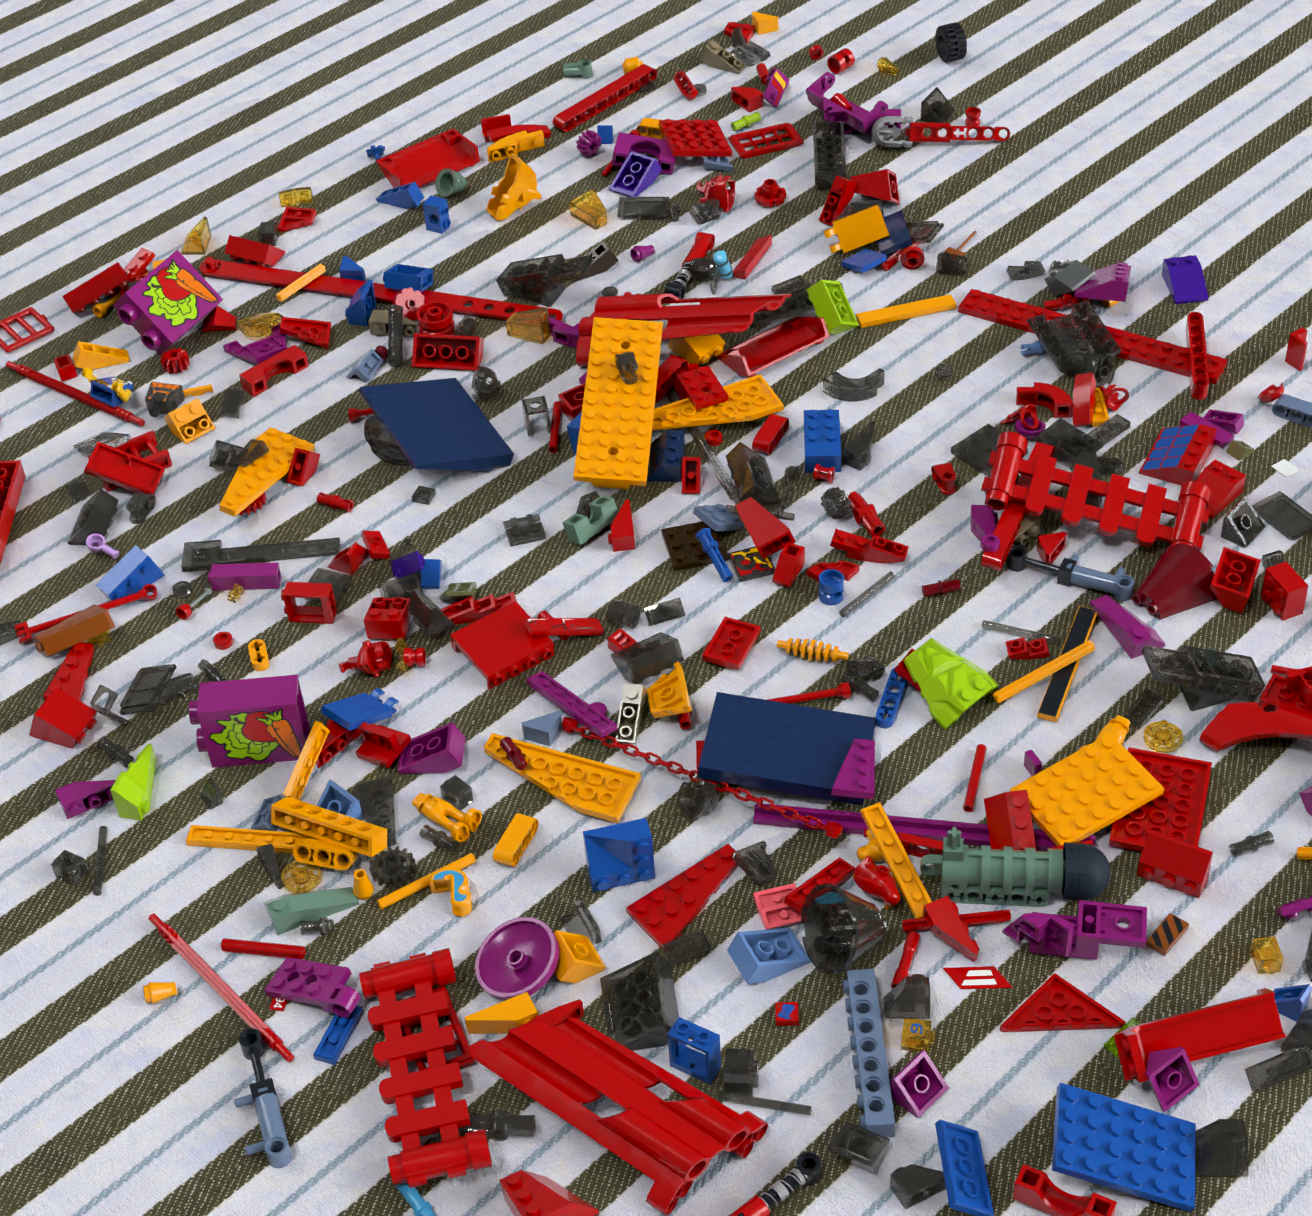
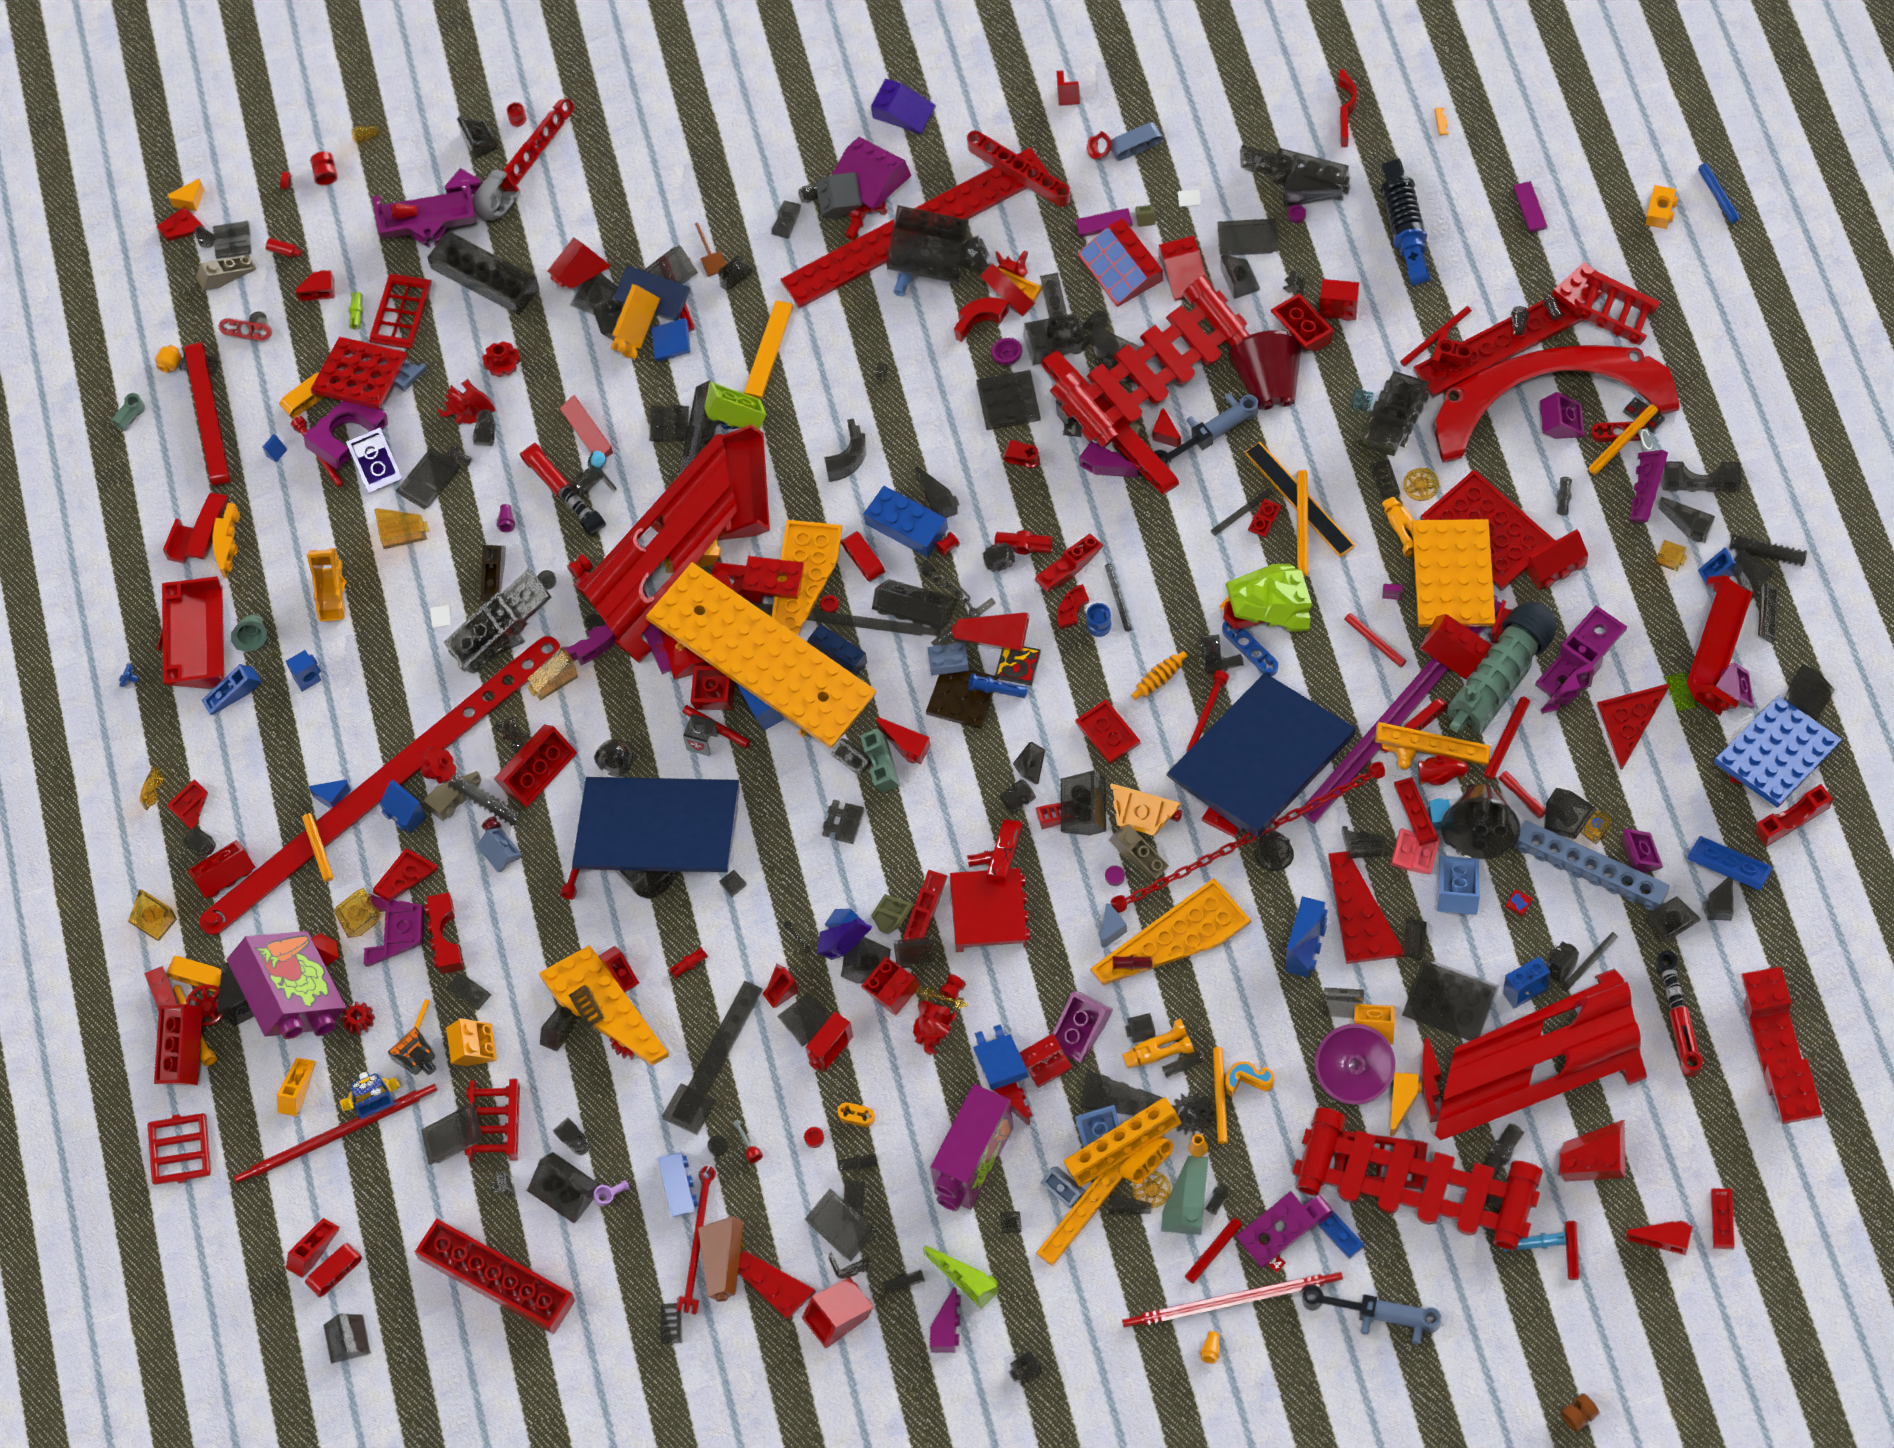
camera: 55 degrees left, 20 degrees up
(65, 367) = (294, 1126): red slope -> none
(100, 859) = (1027, 1342): clear smoke bar -> none
(124, 469) = (519, 1128): red container -> none
(233, 595) = (760, 1103): clear yellow piece -> none
(249, 575) = (743, 1083): magenta brick -> none
(306, 761) = (1037, 1127): light orange tile -> none
(375, 544) = (776, 954): red plate -> none
(408, 276) = (384, 737): blue window -> none
(436, 318) = (481, 752): red wheel -> none
(515, 840) = (1222, 1007): light orange beam -> none
(572, 704) = (1097, 890): magenta tile -> none
(588, 143) = (285, 471): magenta gear -> none
(627, 367) = (737, 624): clear smoke piece -> none
(691, 475) = (875, 649): red slope -> none
(777, 84) = (317, 242): magenta door -> none
(789, 564) = (1049, 636): red slope -> none
(837, 200) = (569, 309): red slope -> none
(857, 771) = (1333, 721): magenta wing -> none
(912, 257) = (702, 298): red plate -> none
(941, 587) = (1152, 538): dark red axle -> none
(946, 924) = (1513, 746): red slope -> none
(951, 42) = (385, 57): black tyre -> none
(977, 977) = (1564, 755): red sticker -> none
(990, 543) = (1154, 473): magenta tile -> none
(1026, 411) = (992, 345): red piece -> none
(1126, 627) = (1296, 433): magenta wedge -> none
(1167, 934) = (1607, 601): dark orange tile -> none
(1228, 421) = (1110, 205): magenta slope -> none

